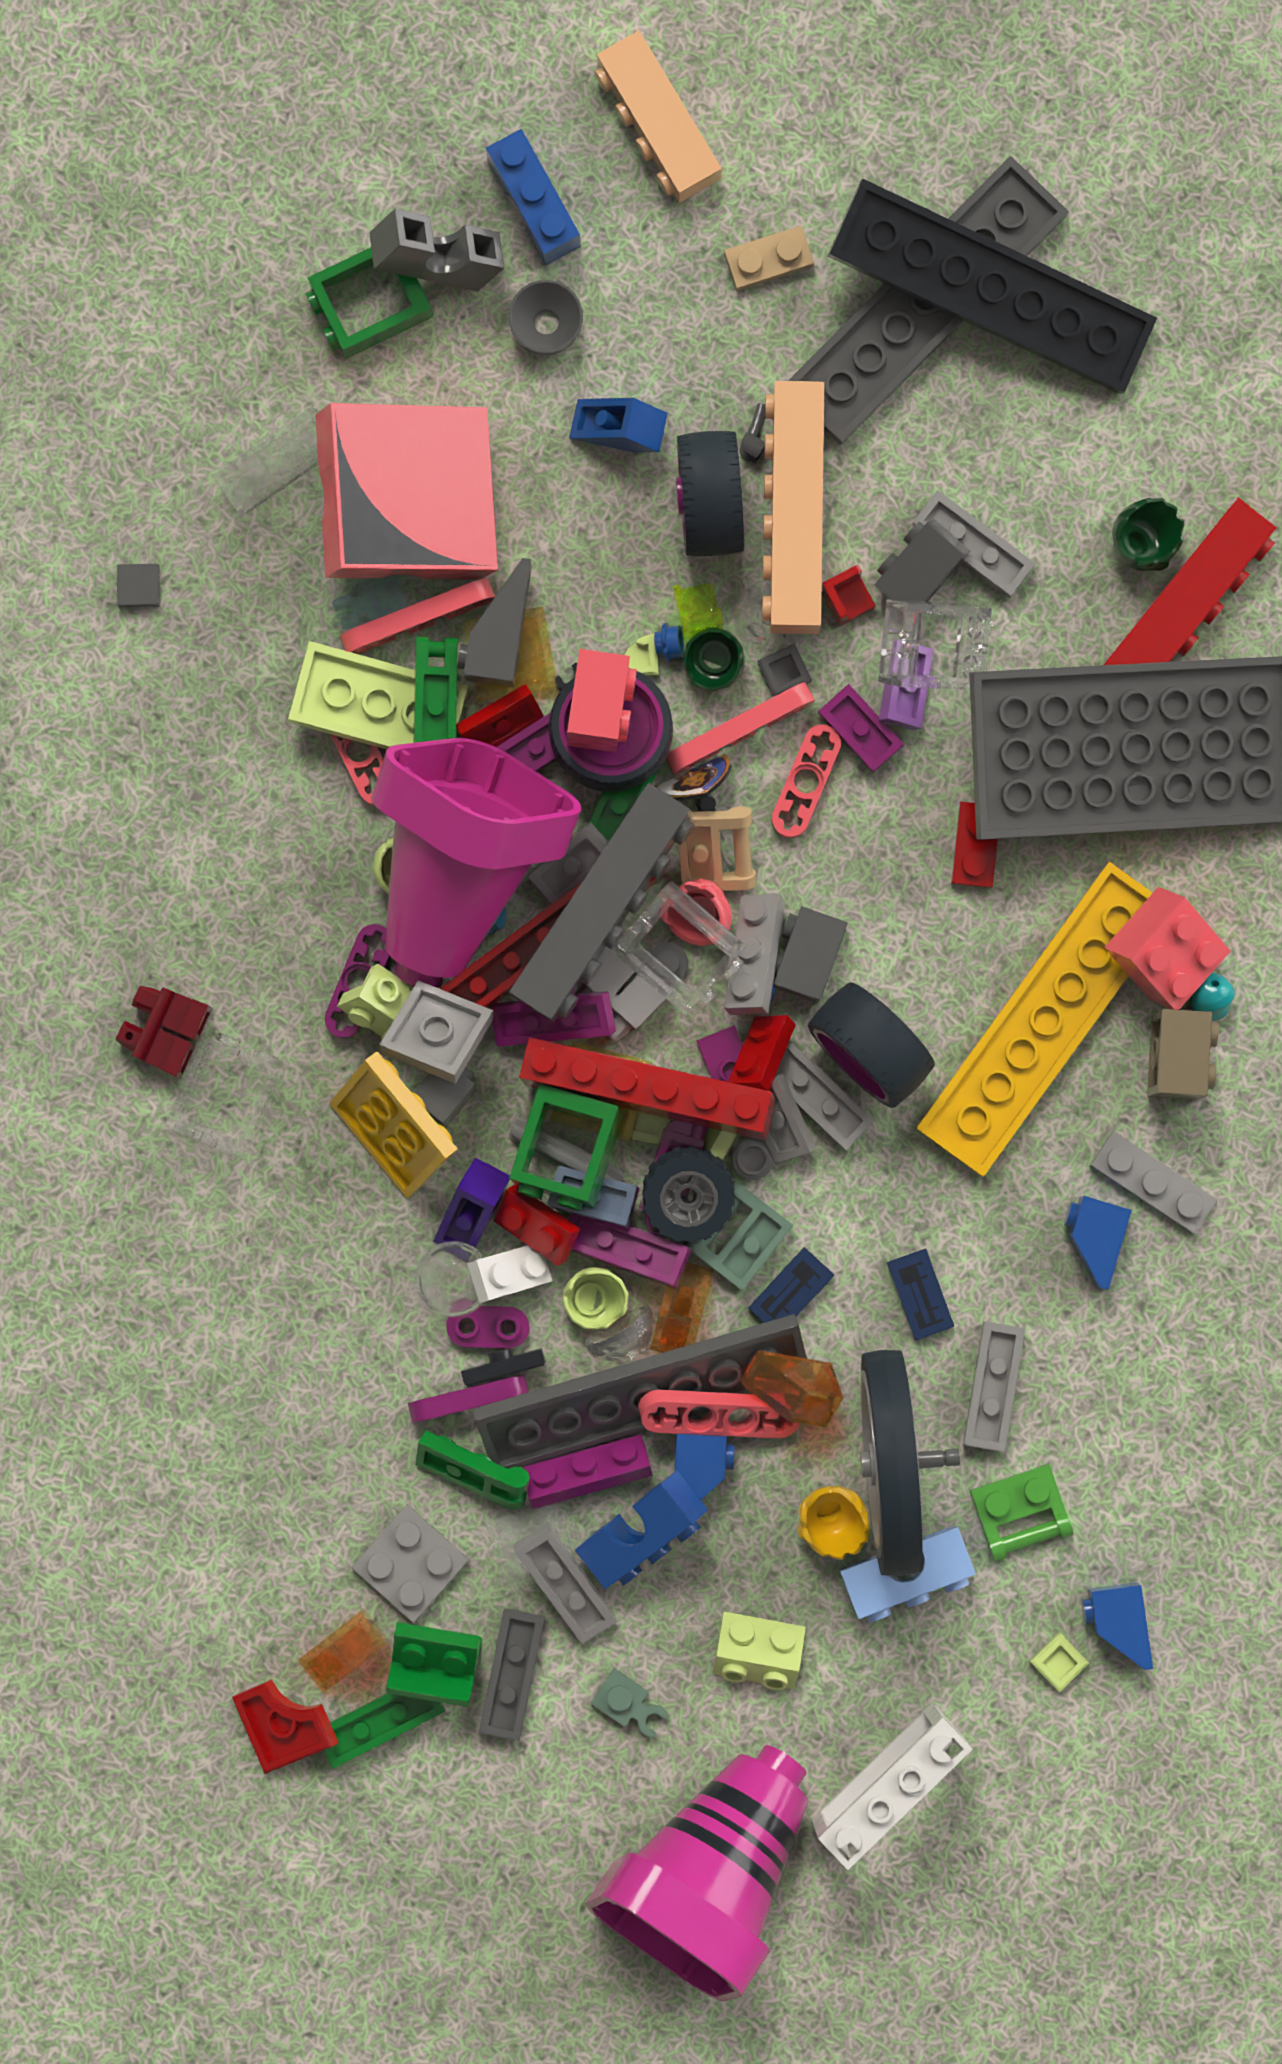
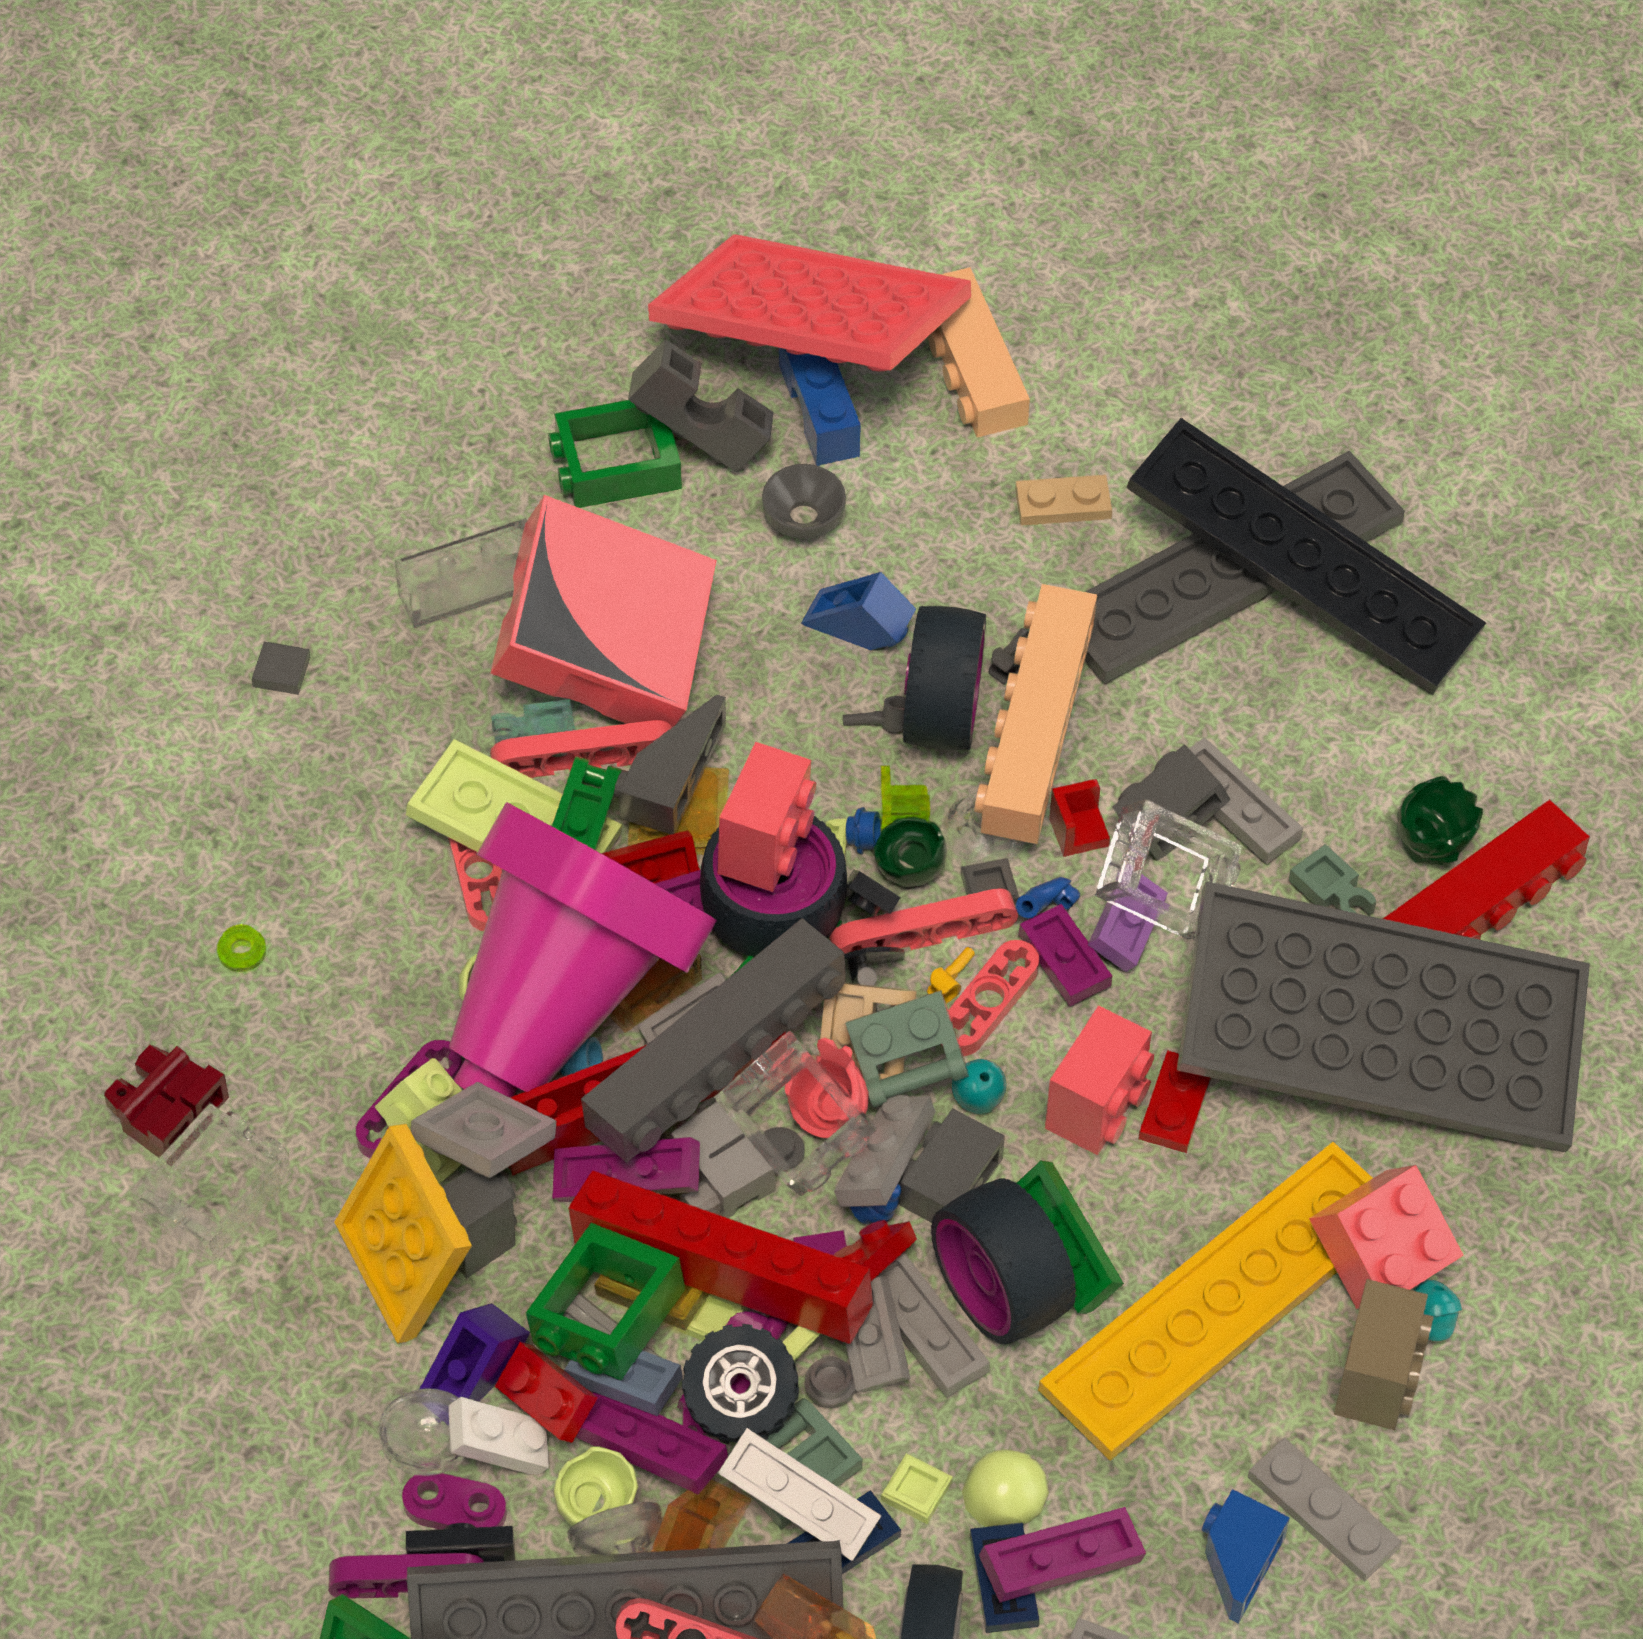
camera: 10 degrees right, 30 degrees down
(172, 864) = (238, 936): none -> clear neon green plate
(507, 112) = (810, 302): none -> coral plate
(668, 526) = (890, 718): none -> dark grey hand
(693, 717) = (870, 894): none -> black plate
(748, 851) = (902, 1032): none -> sand green plate
(754, 1275) = (799, 1493): none -> plate
(765, 777) = (945, 979): none -> yellow hand
(806, 866) = (982, 1089): none -> teal piece
(827, 677) = (1039, 897): none -> blue arm
(838, 1234) = (916, 1488): none -> yellowish green tile
(906, 1221) = (1005, 1488): none -> yellowish green hair
(911, 994) = (1092, 1268): none -> green plate
(914, 854) = (1099, 1081): none -> coral brick
(962, 1273) = (1062, 1554): none -> magenta plate
(1063, 607) = (1330, 880): none -> sand green plate

